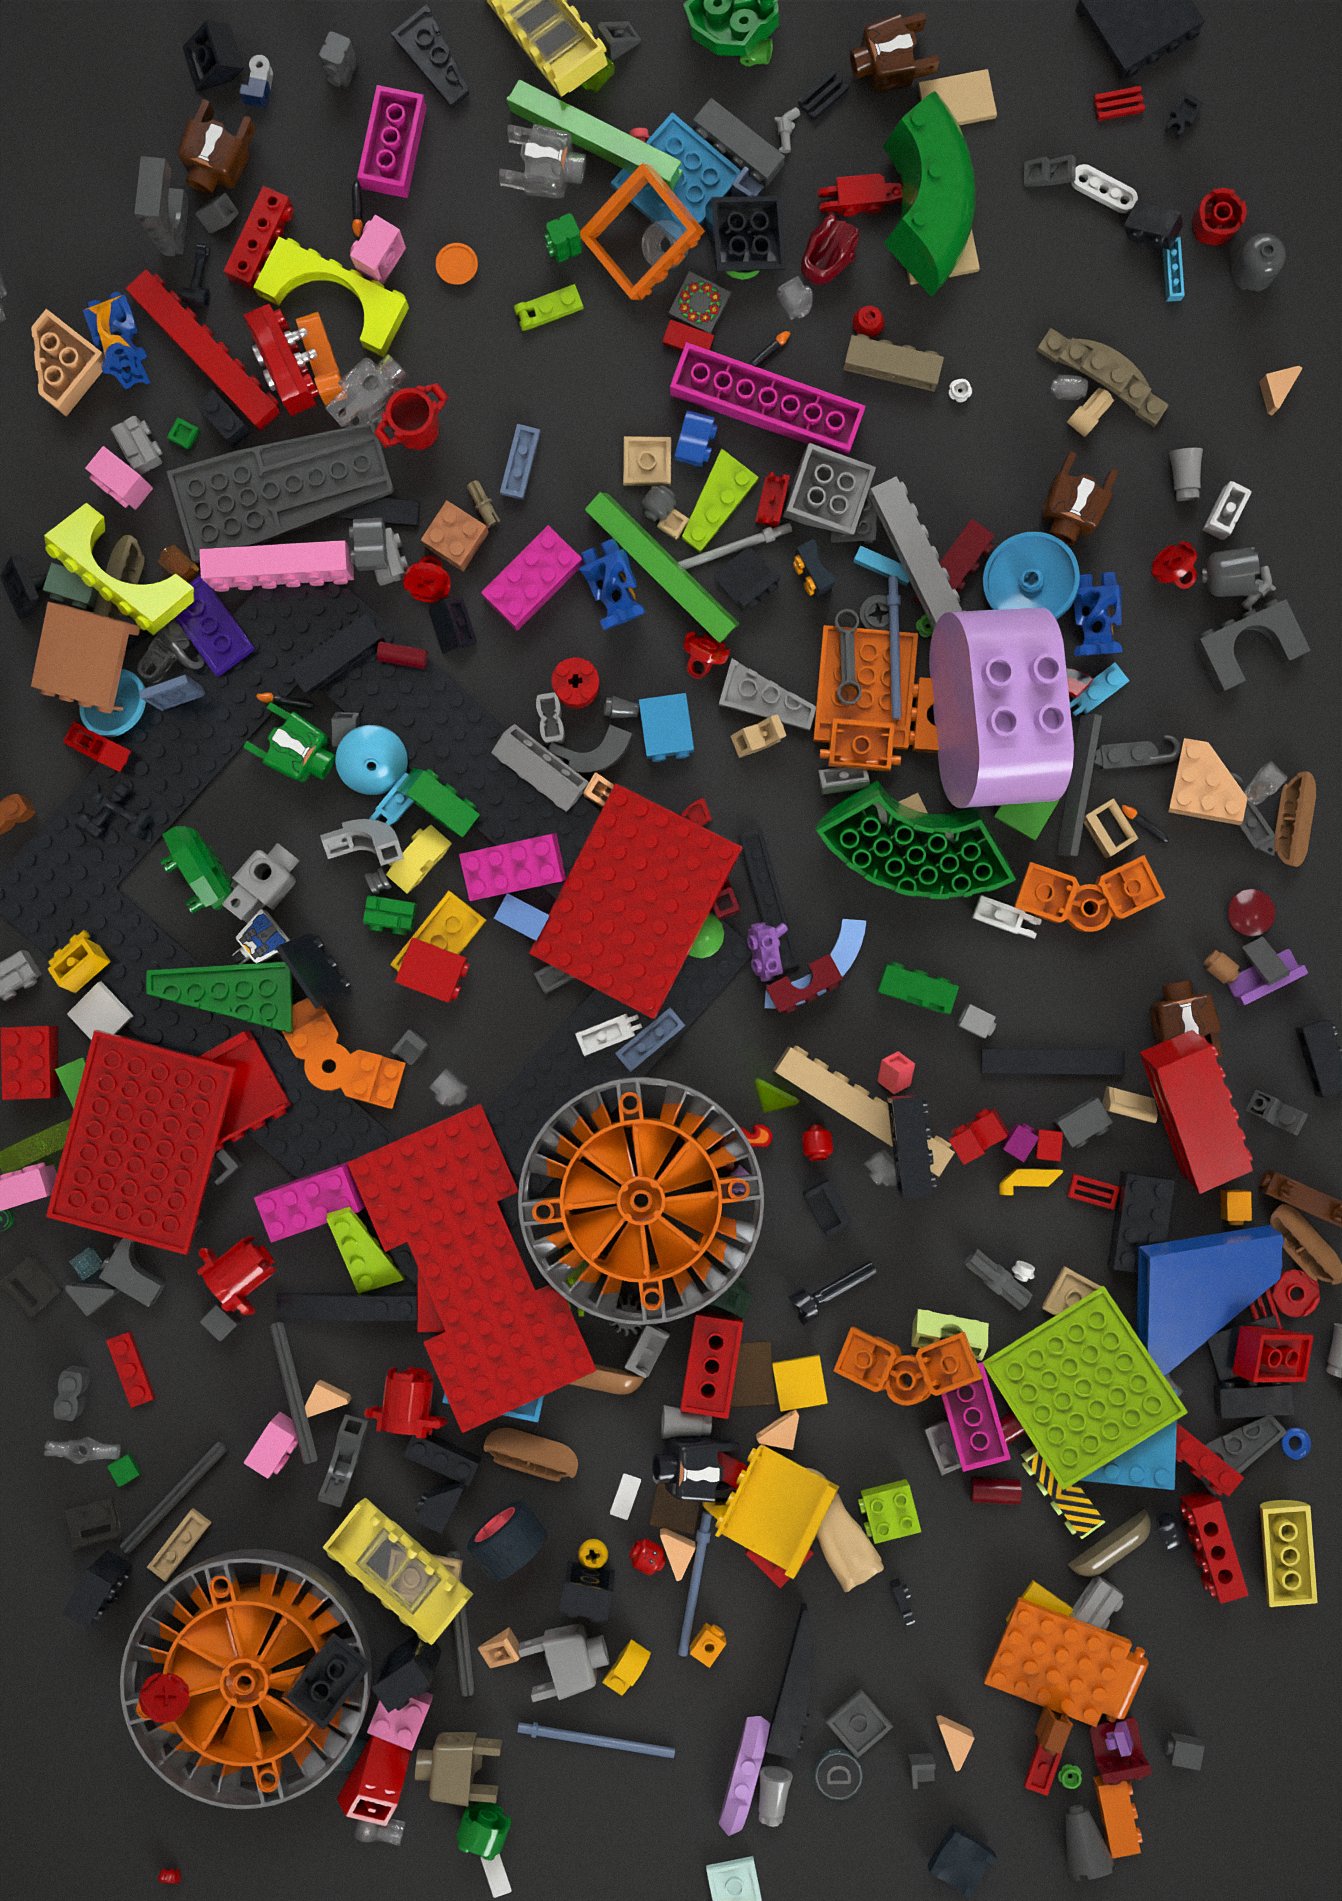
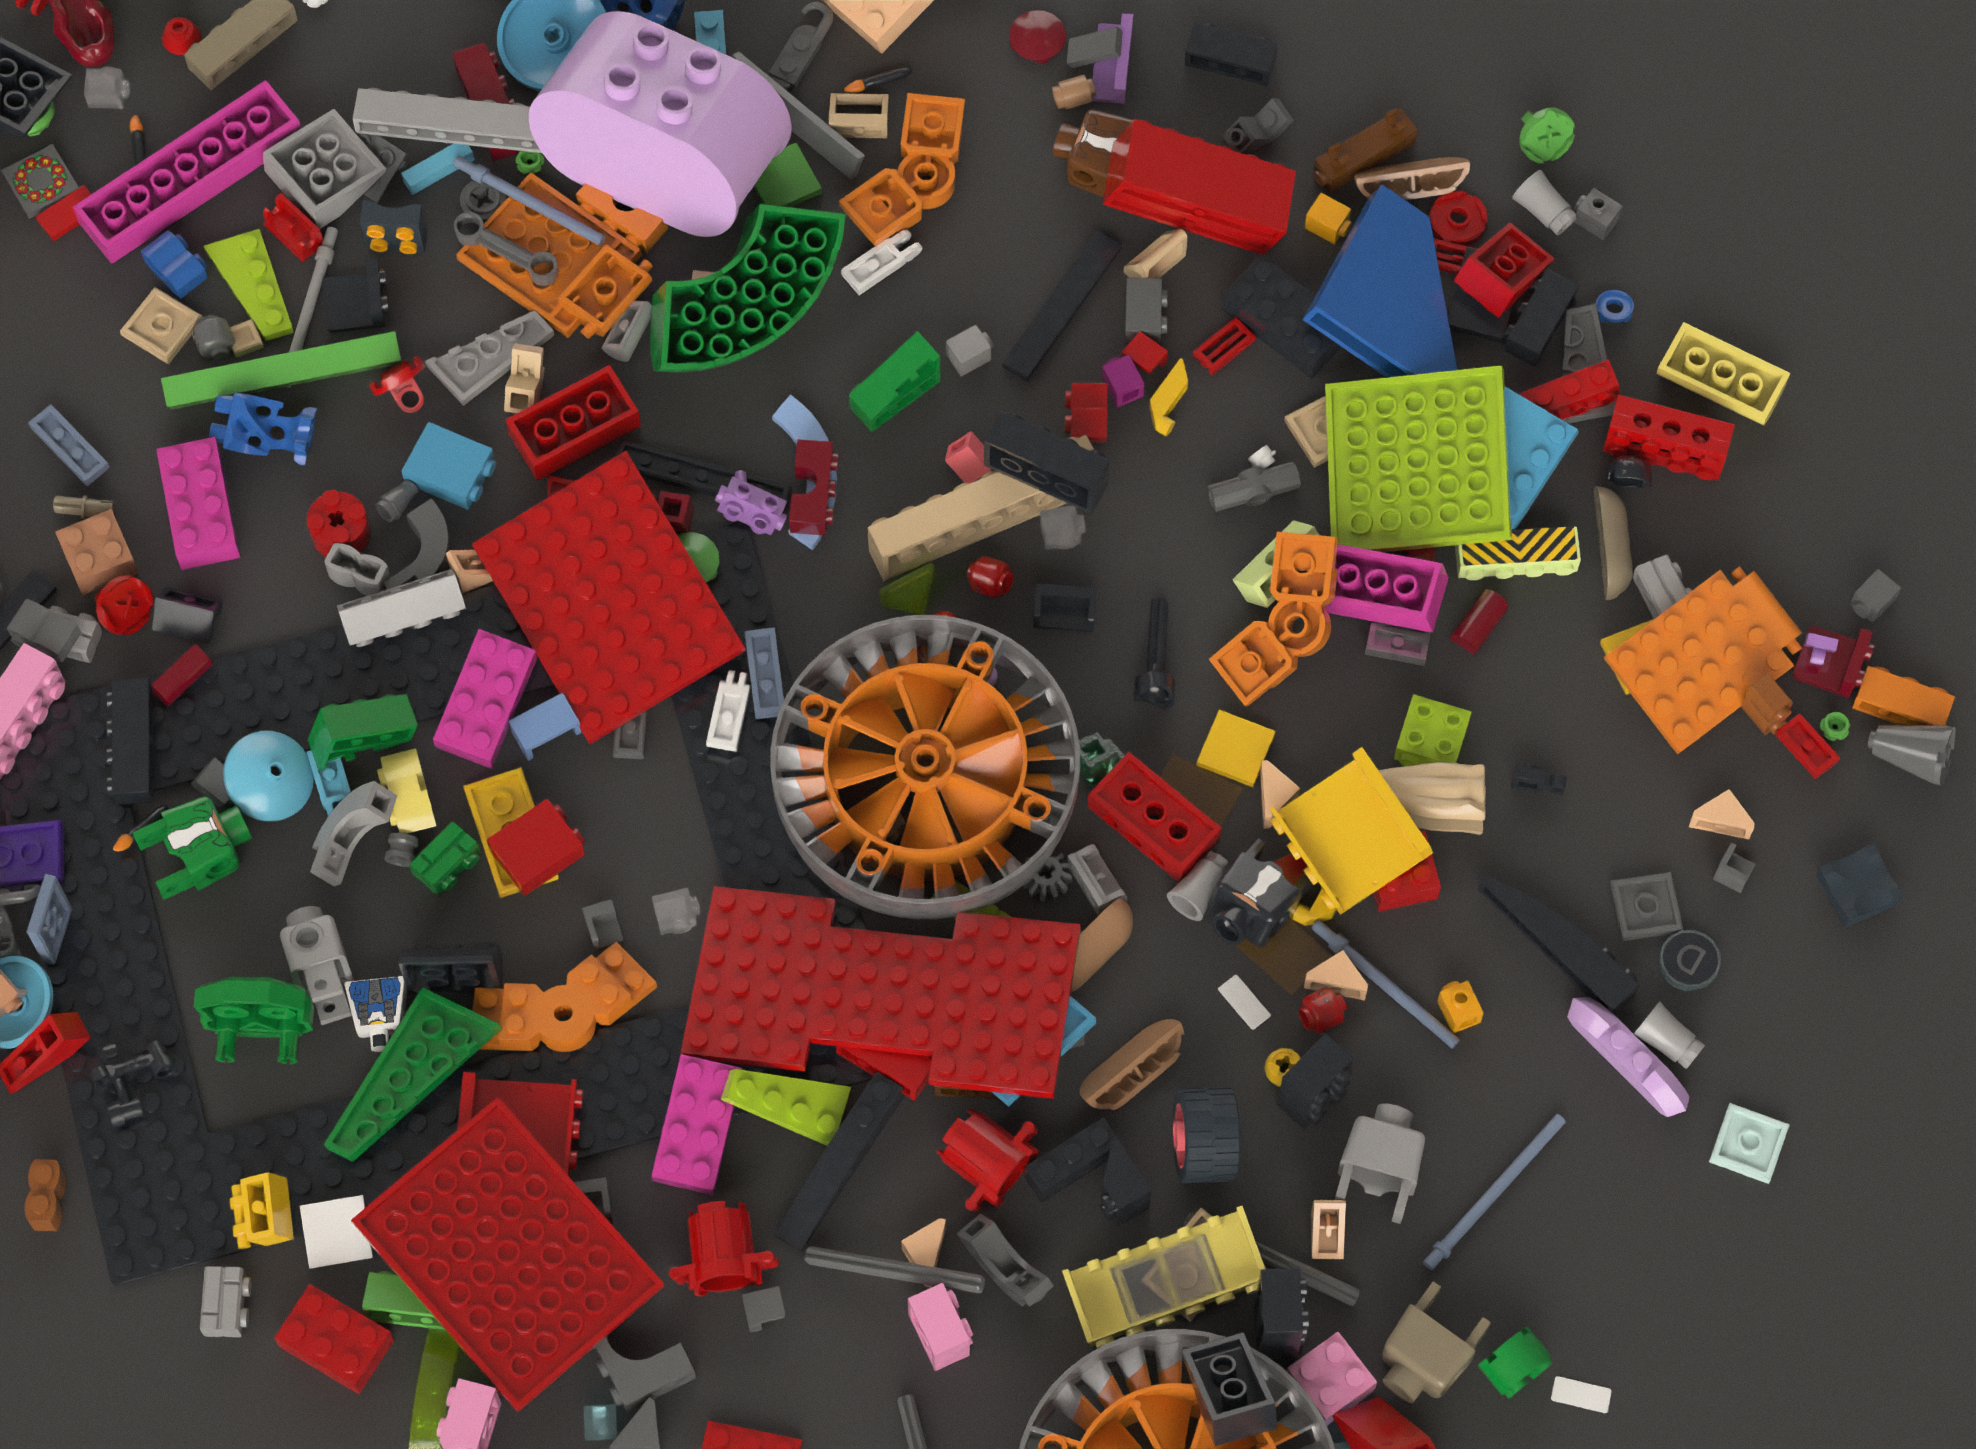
camera: 55 degrees left, 20 degrees down
(627, 1667) = (1434, 1108): yellow brick -> none
(748, 790) = (573, 422): none -> red brick

